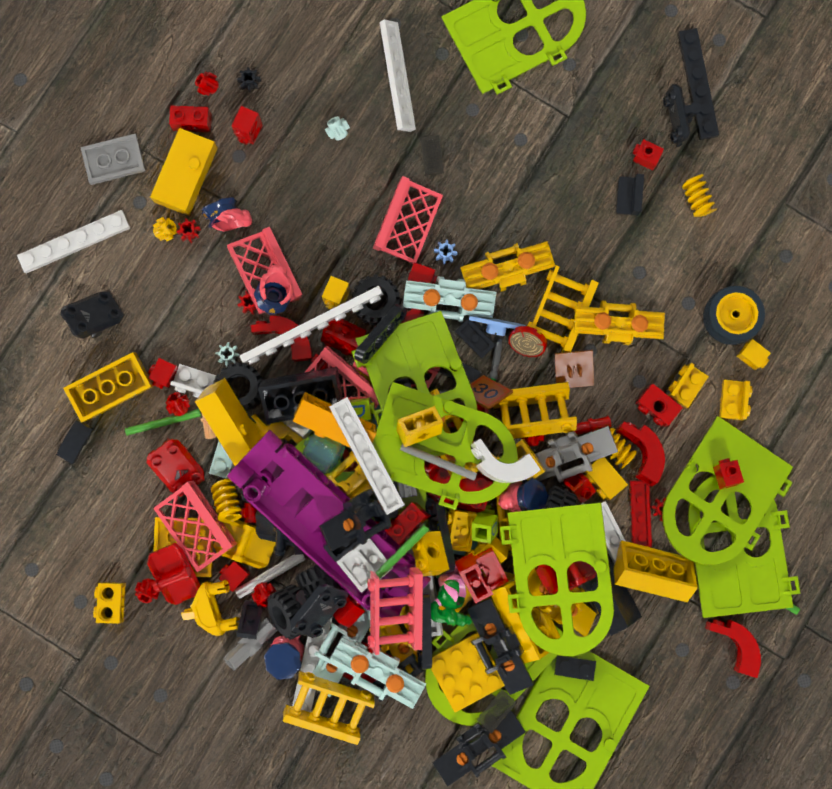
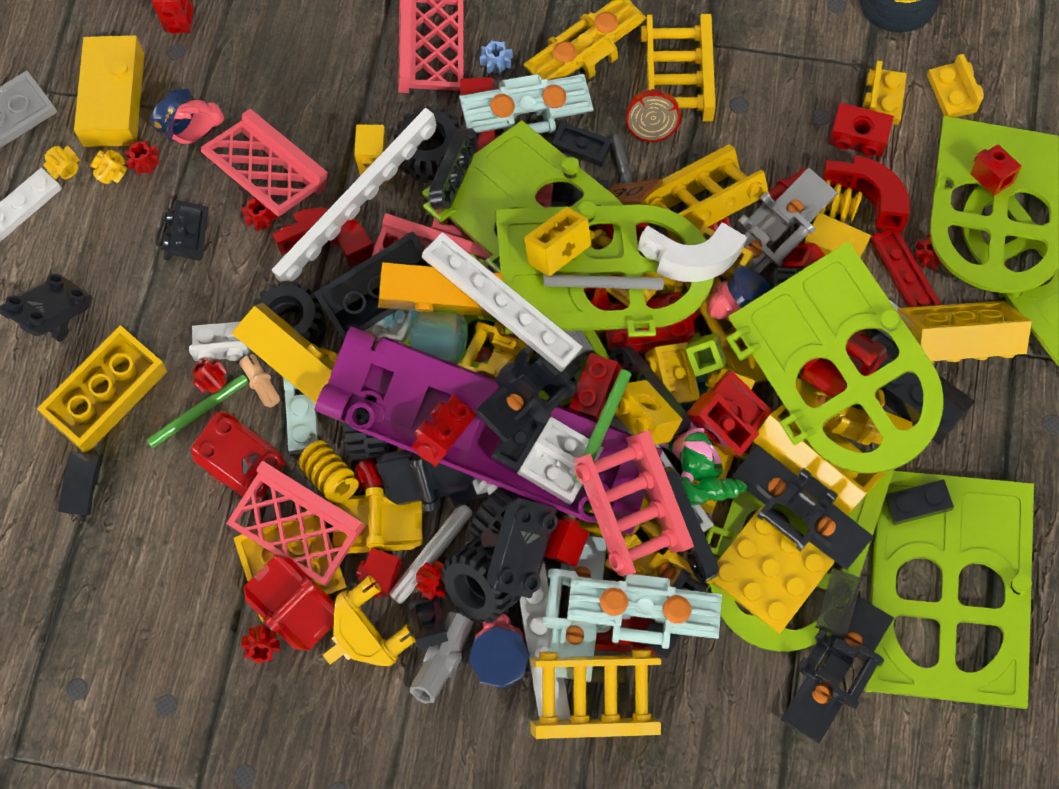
camera: 15 degrees left, 15 degrees down
(116, 603) = (218, 680): yellow brick -> none
(135, 212) = (61, 162): none -> yellow gear
(162, 373) = (173, 345): red brick -> none
(190, 118) = (93, 22): red brick -> none
(197, 295) = (185, 230): none -> black bracket
(224, 350) = (251, 280): light aqua gear -> none
(274, 290) = (287, 174): piece -> none
(299, 523) = (442, 432): none -> red brick
(342, 335) = (402, 203): red bracket -> none
(495, 325) = (599, 117): light blue piece -> none
(575, 368) = (730, 124): piece -> none
(619, 329) = (781, 46): yellow piece -> none
(754, 355) = (951, 26): yellow brick -> none

